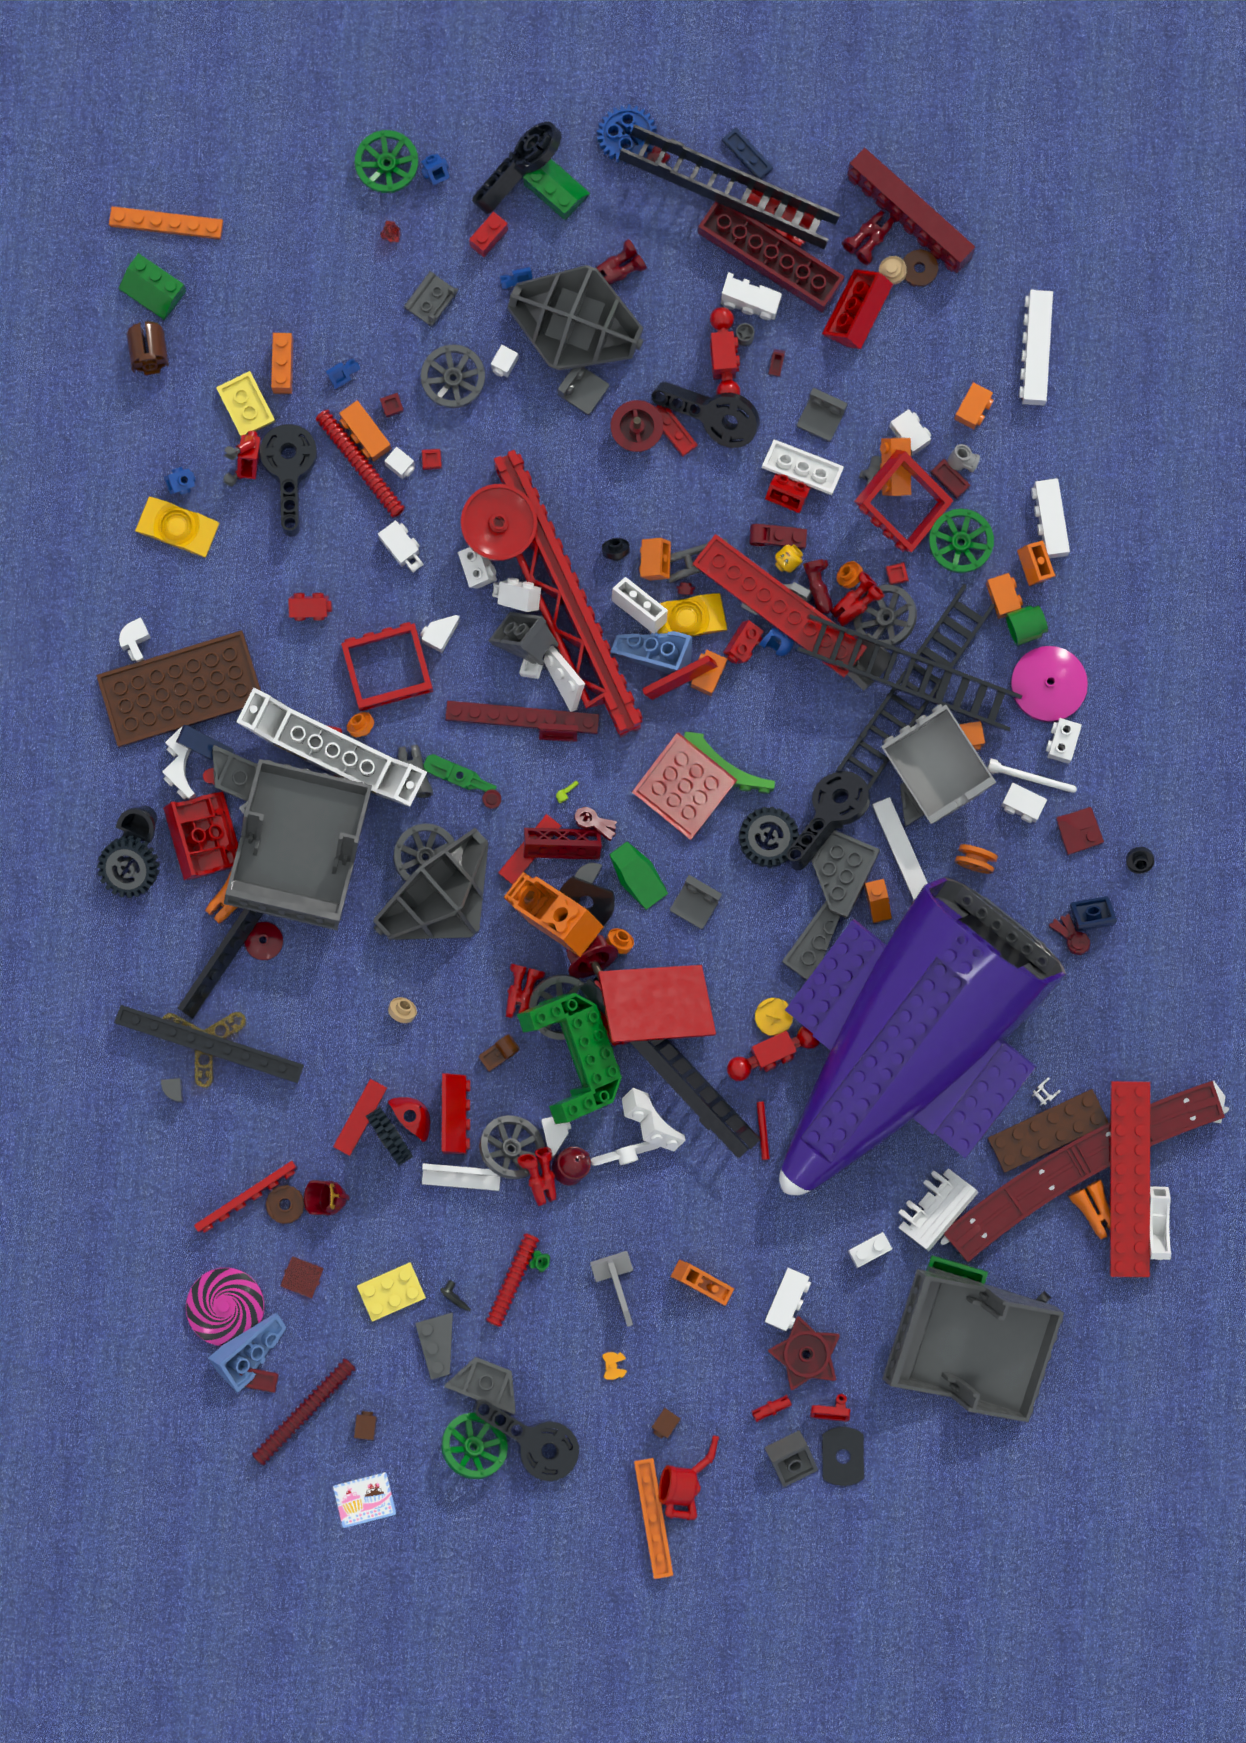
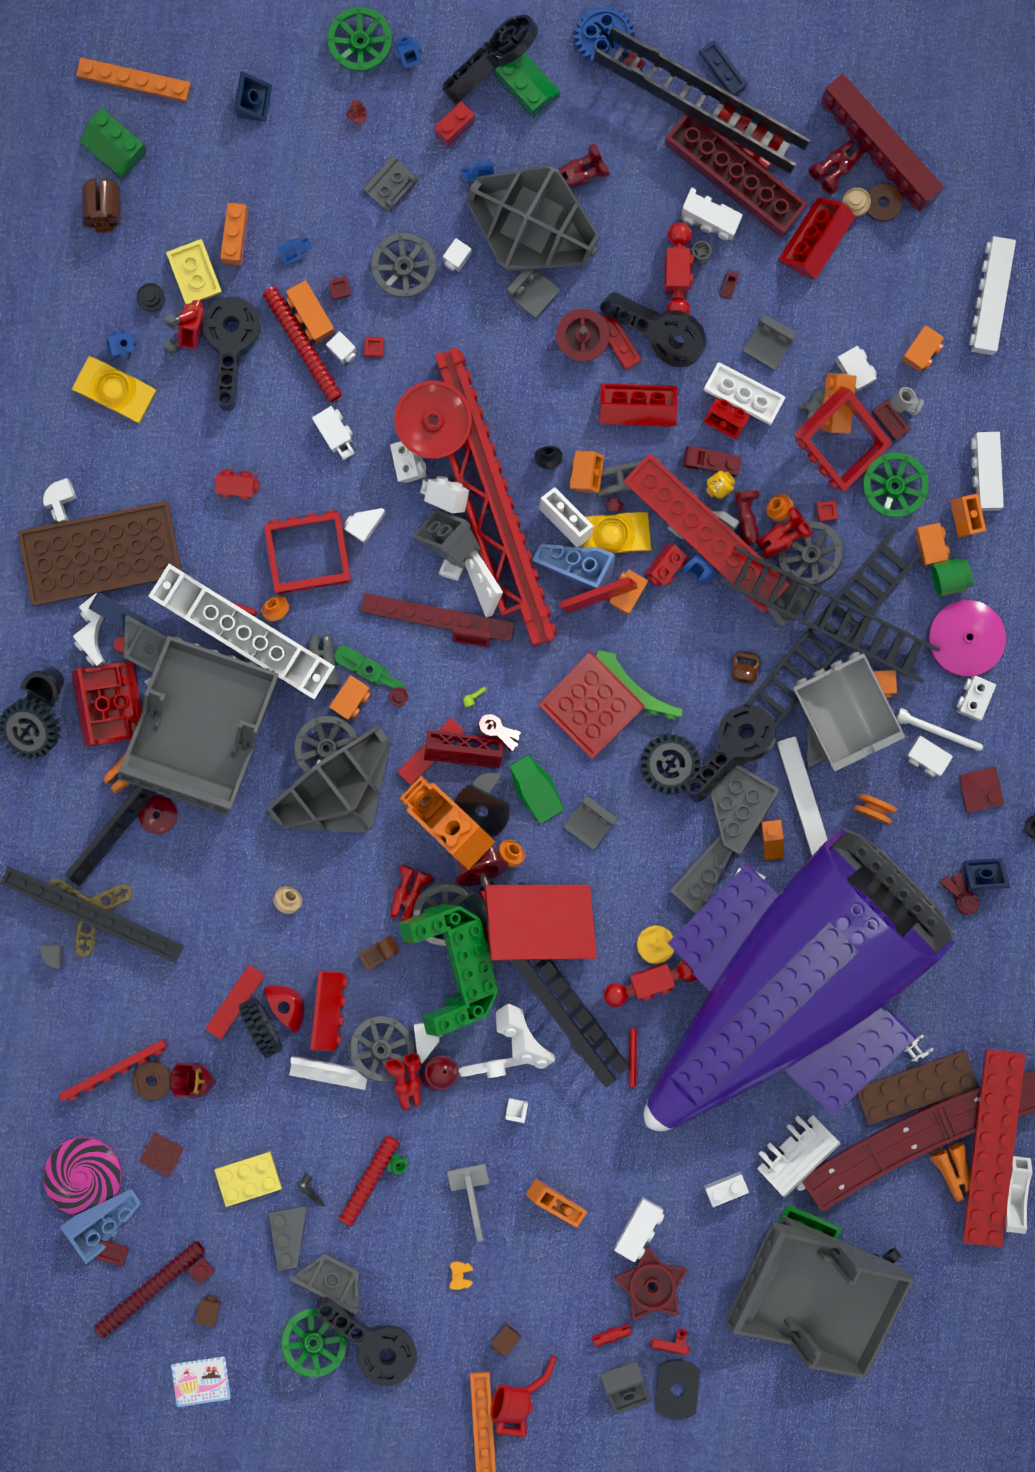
camera: 10 degrees right, 5 degrees up
(205, 433) = (150, 297): none -> black plate
(286, 229) = (252, 97): none -> dark blue slope
(353, 1388) = (201, 1270): none -> dark red plate
(444, 804) = (350, 698): none -> orange brick
(652, 1194) = (516, 1110): none -> white panel
(699, 489) = (638, 405): none -> red slope
(832, 739) = (745, 672): none -> reddish brown piece

